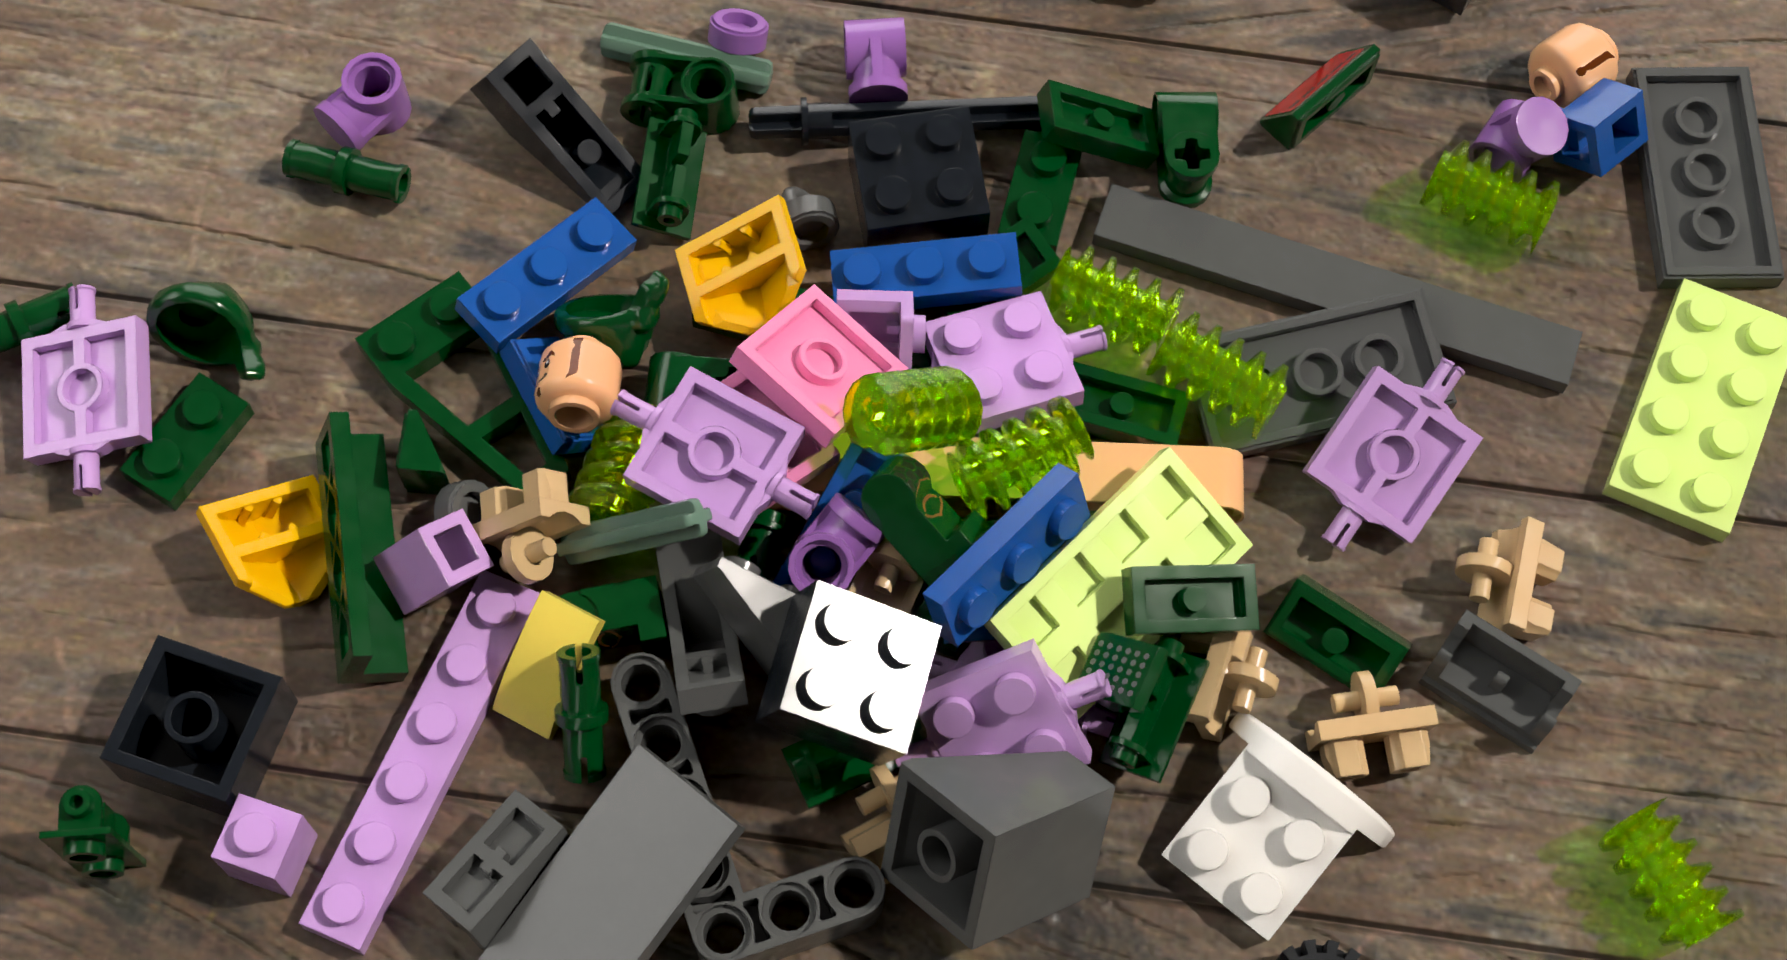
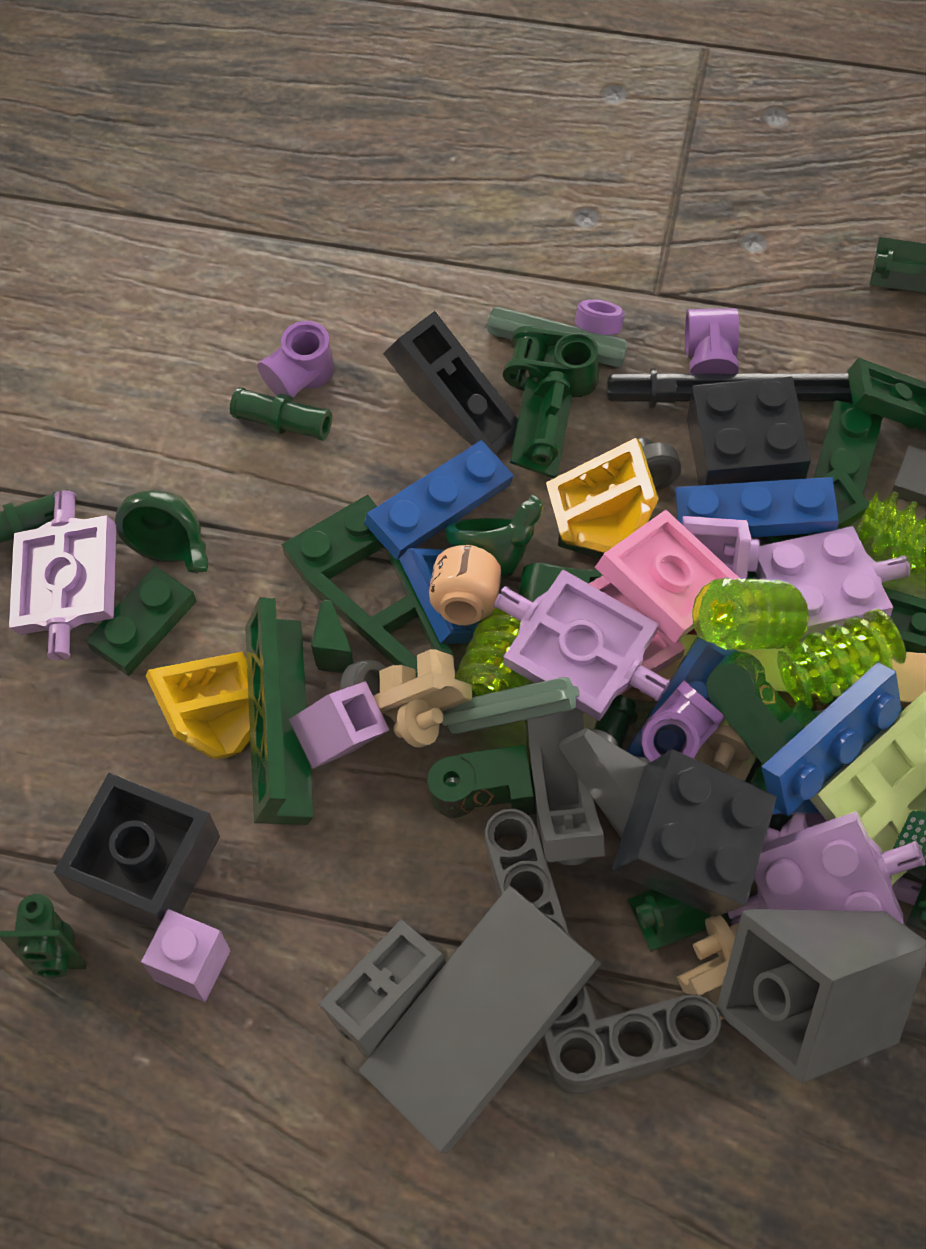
camera: 10 degrees right, 5 degrees down
(419, 765) = (319, 896): lavender plate -> none
(532, 675) = (430, 815): light yellow slope -> none
(581, 713) = (459, 857): dark green pin -> none

